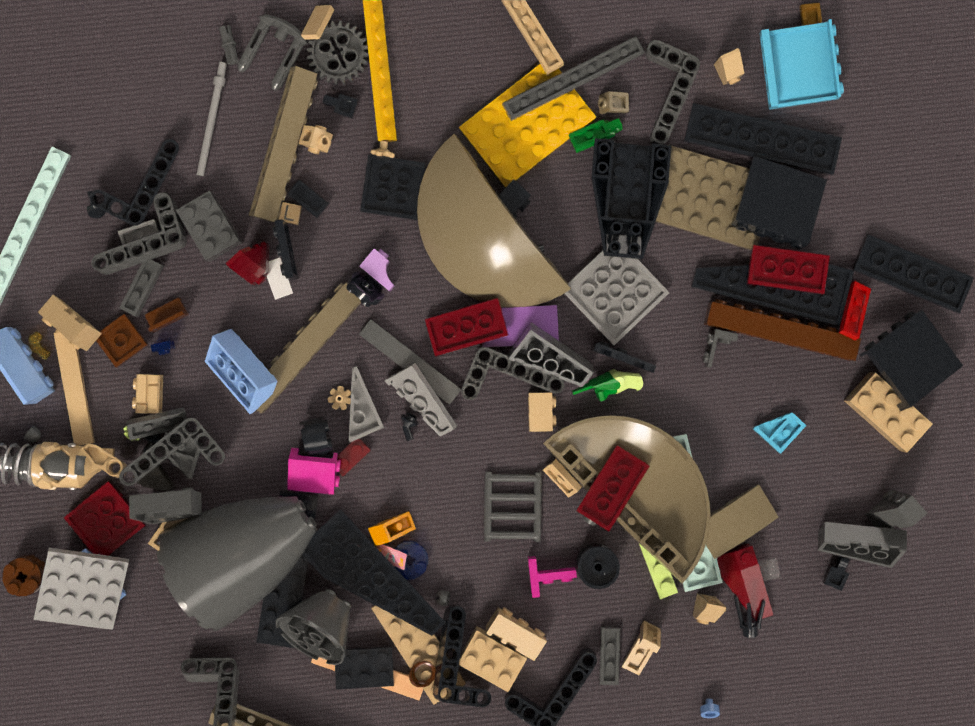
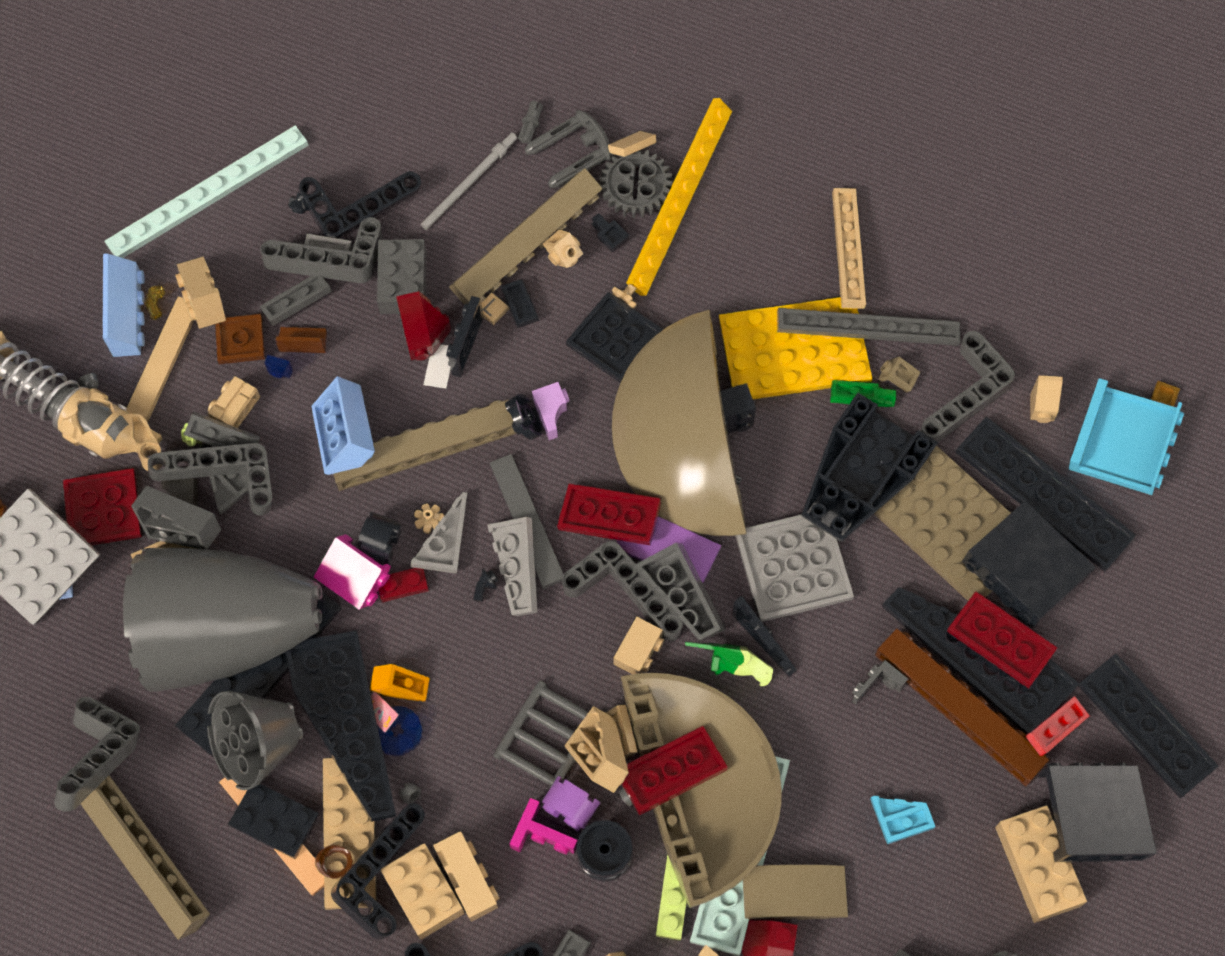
camera: 30 degrees right, 20 degrees down
(557, 548) = (570, 803): none -> medium lavender brick
(558, 505) = (599, 749): none -> tan wedge

